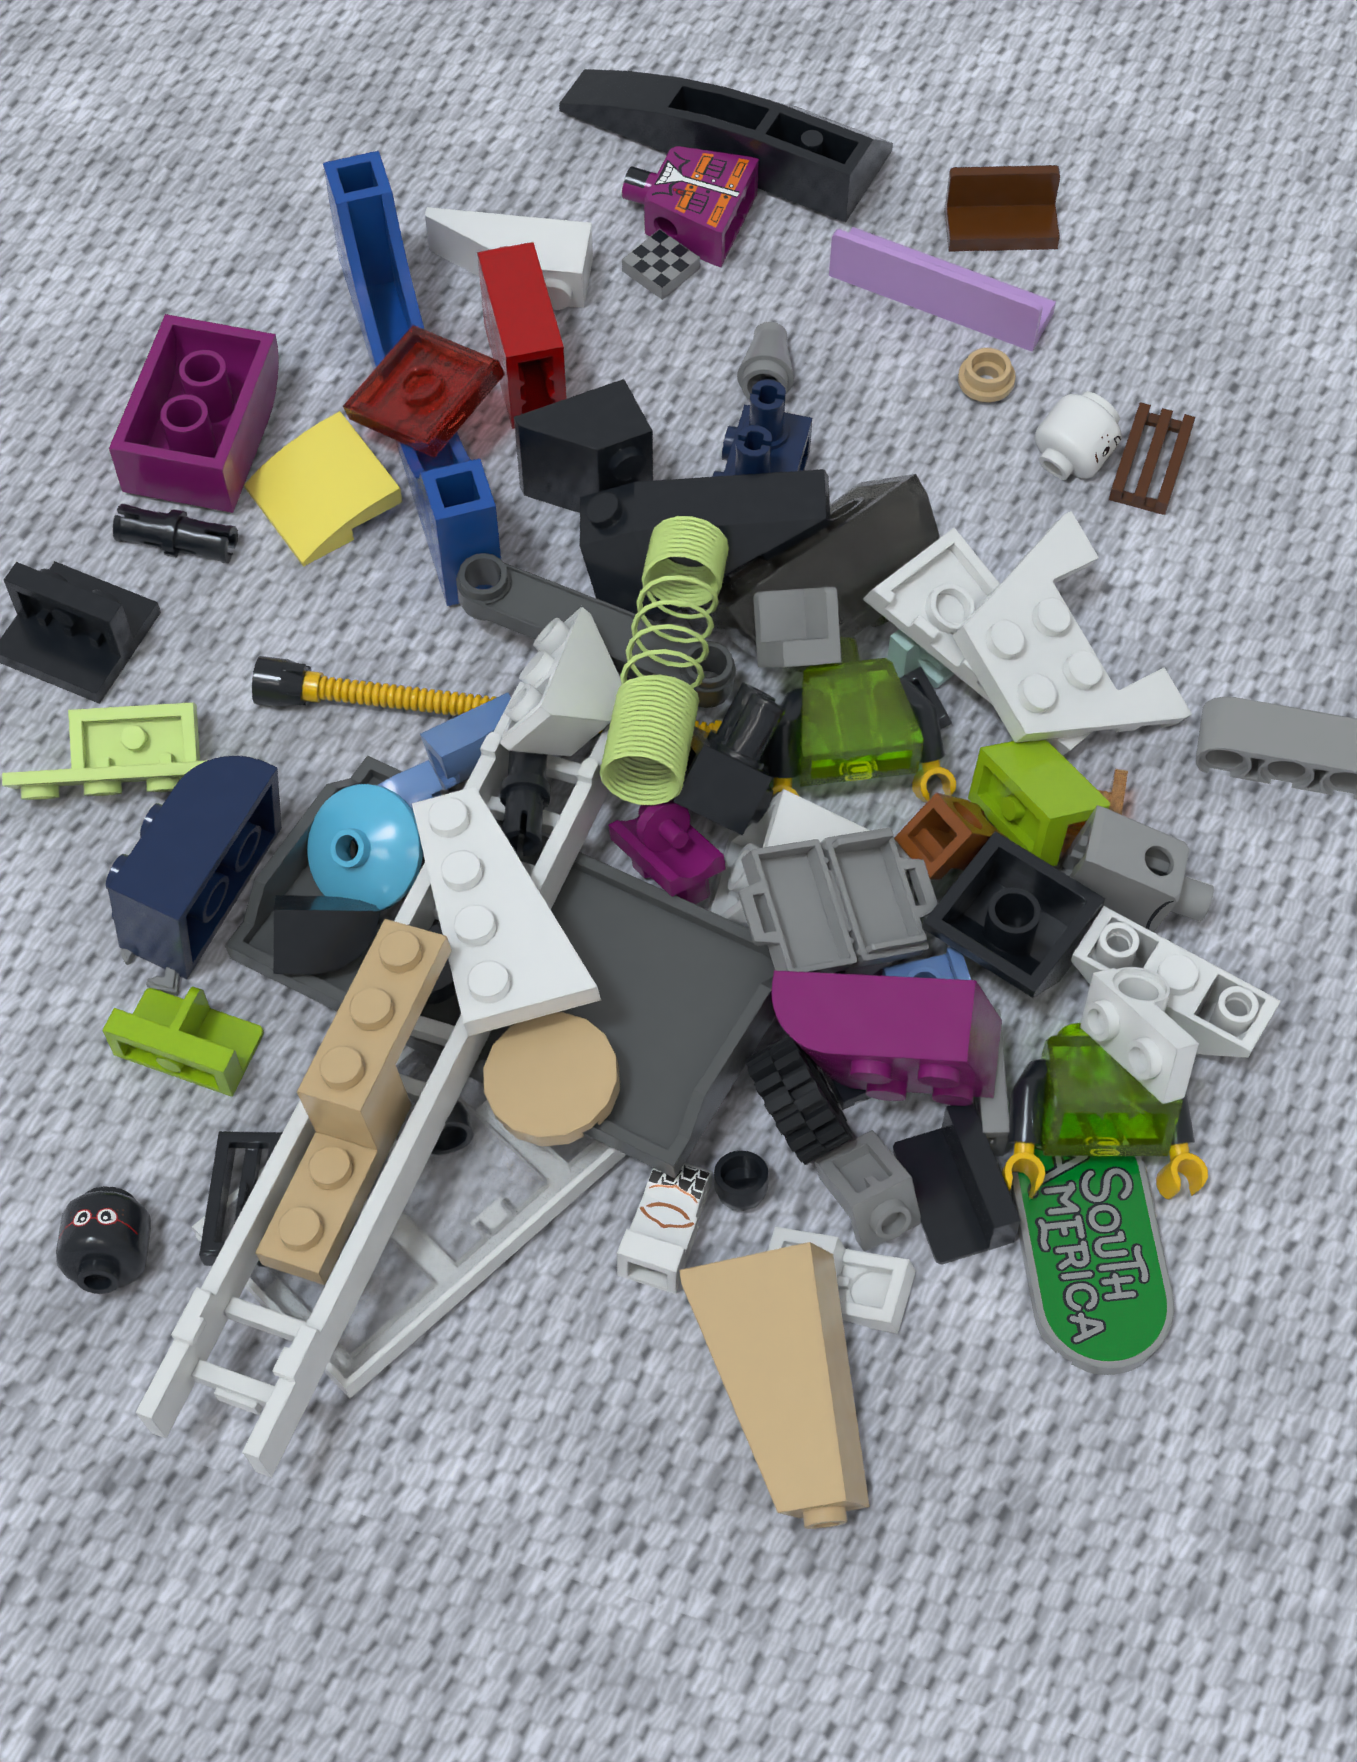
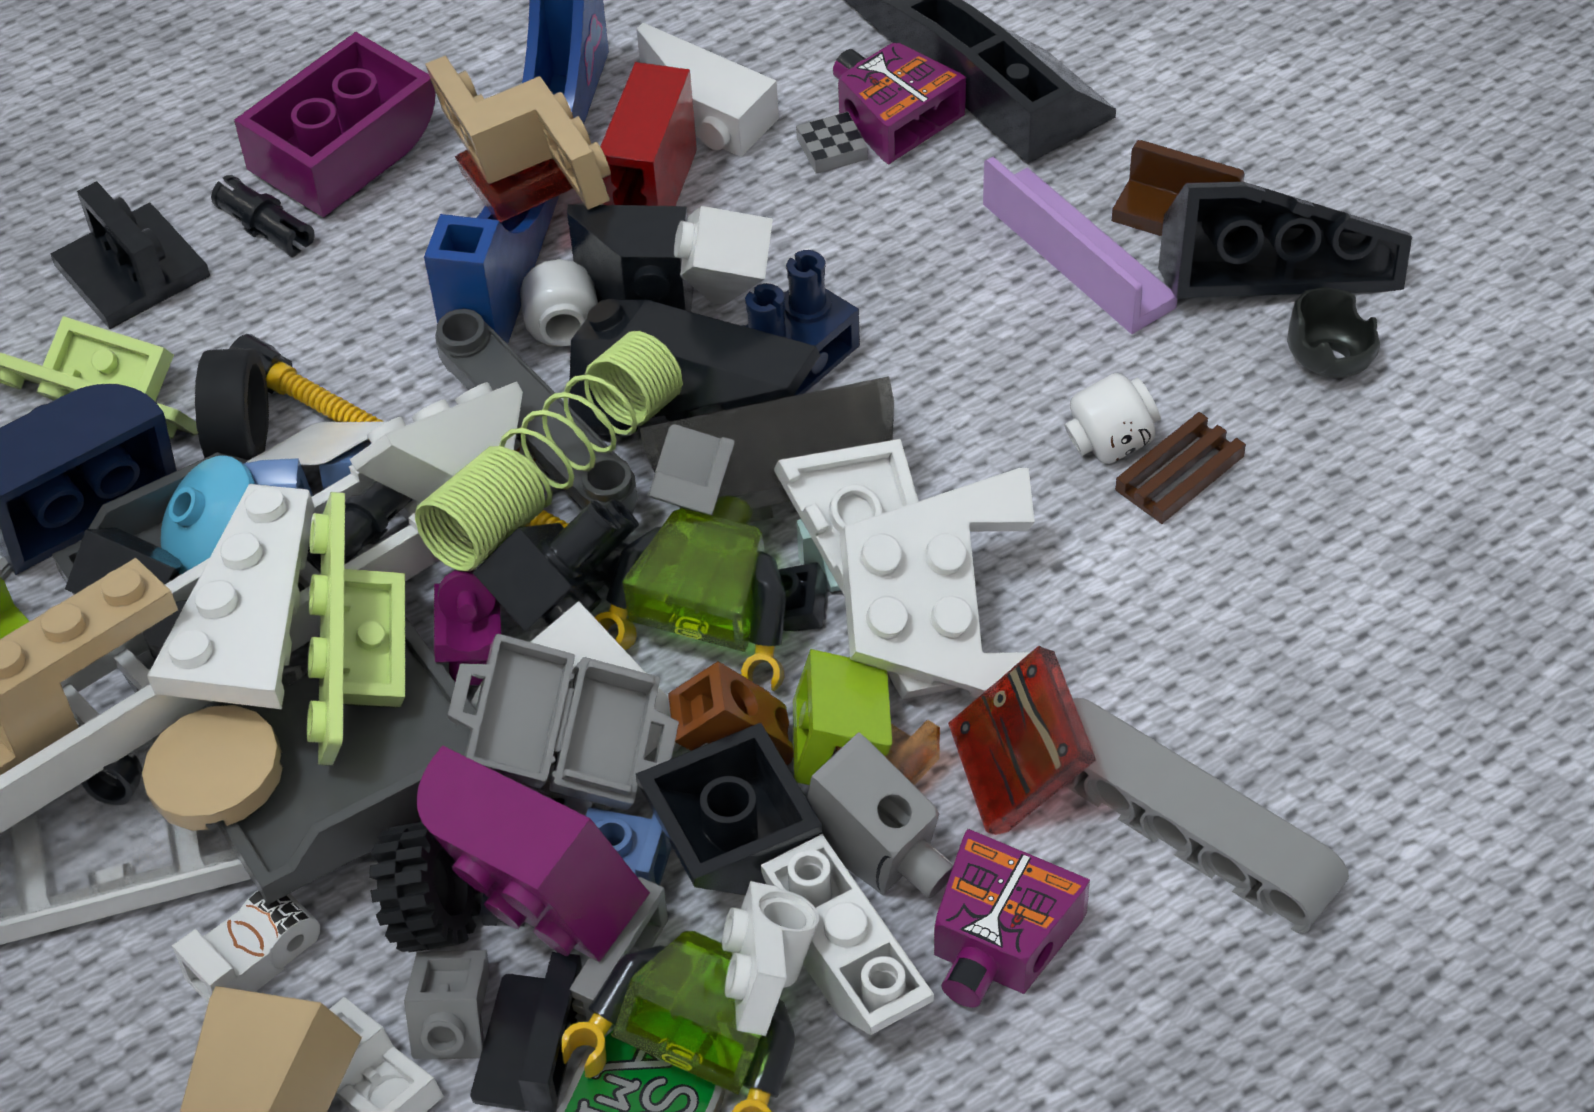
camera: 30 degrees right, 10 degrees down
(303, 732) = (231, 403): none -> black tyre
(322, 488) = (397, 219): light yellow slope -> none
(410, 736) = (320, 442): none -> white sticker
(412, 360) = (520, 131): none -> tan bracket
(531, 513) = (556, 301): none -> white head
(607, 901) = (360, 634): none -> yellowish green bracket
(695, 409) = (723, 252): none -> white slope
(735, 1174) = (339, 941): black hinge -> none
(766, 358) = (862, 257): light grey cone -> none
(991, 363) = (1067, 324): tan plate -> none
(1114, 229) = (1264, 242): none -> black wedge
(1198, 754) = (1021, 741): none -> clear red tile
(1199, 281) = (1329, 322): none -> pearl dark grey hair
(1270, 911) = (1003, 917): none -> magenta torso

